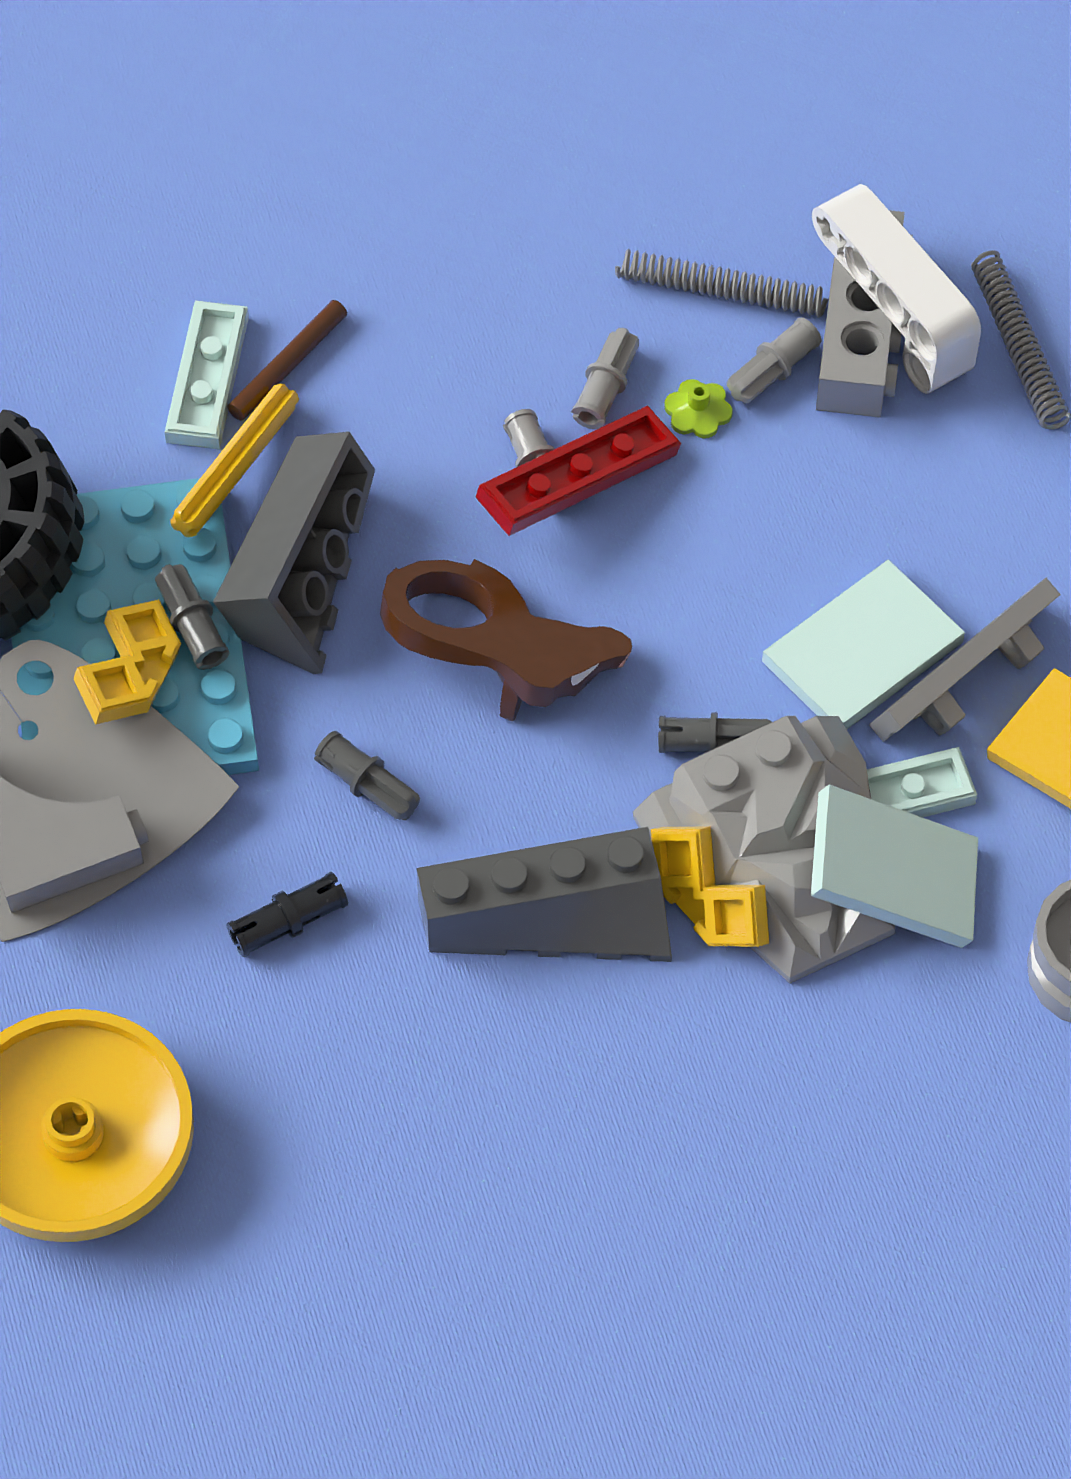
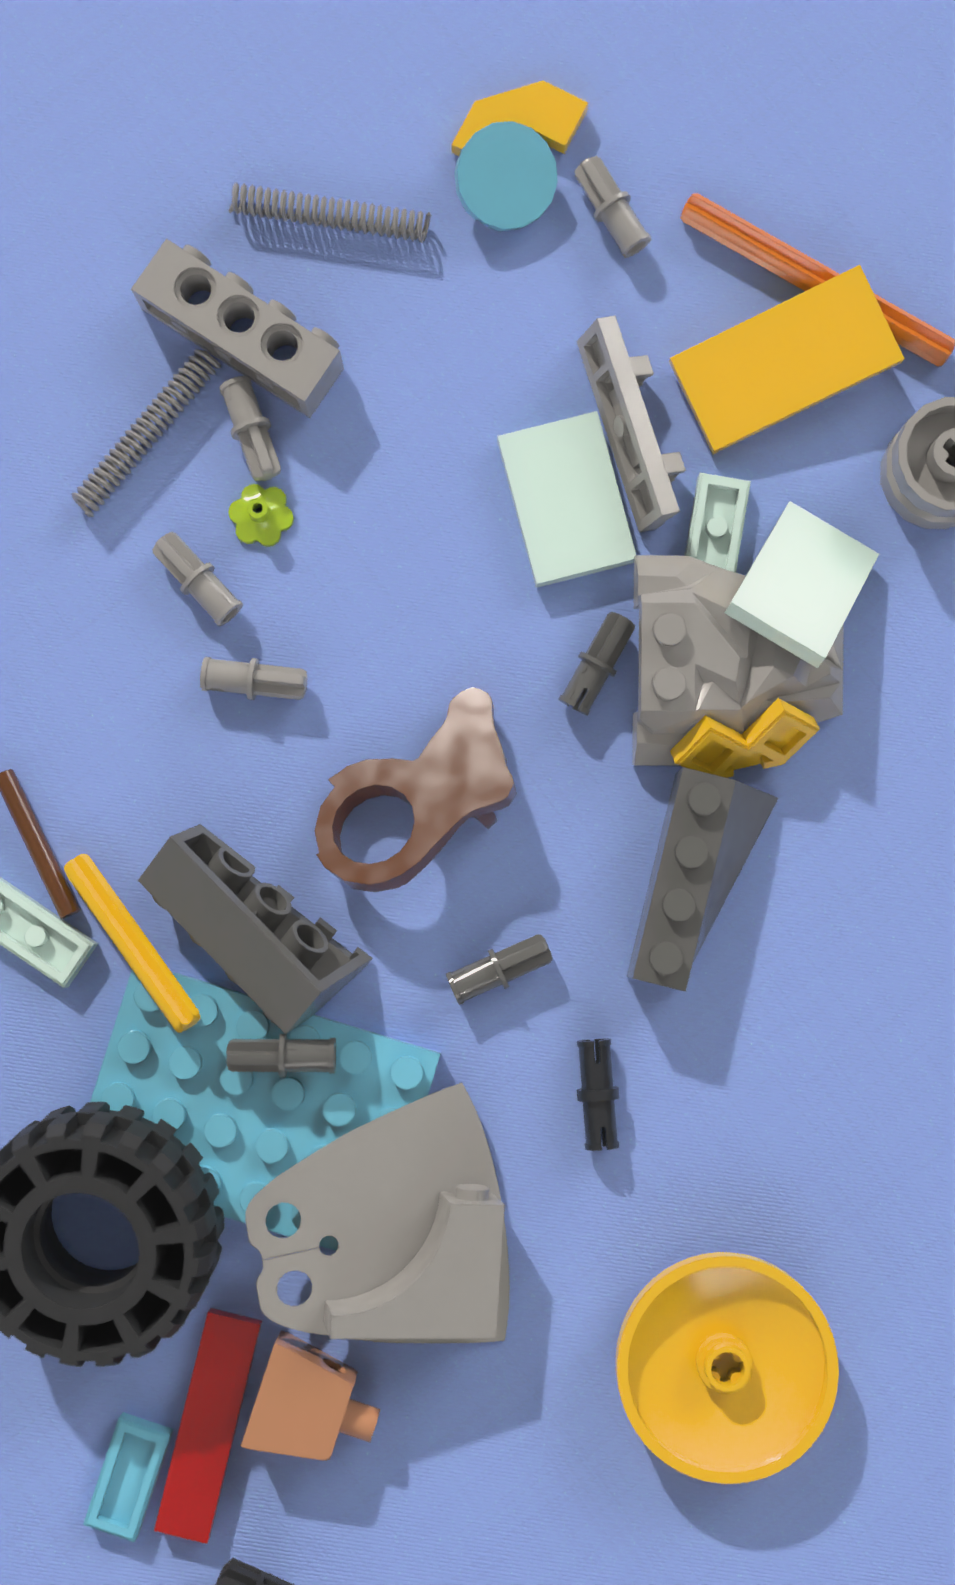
camera: 65 degrees left, 25 degrees up
(131, 682) = (300, 1108): yellow tile -> none
(577, 470) = (289, 652): red tile -> none
(905, 284) = (243, 281): white beam -> none

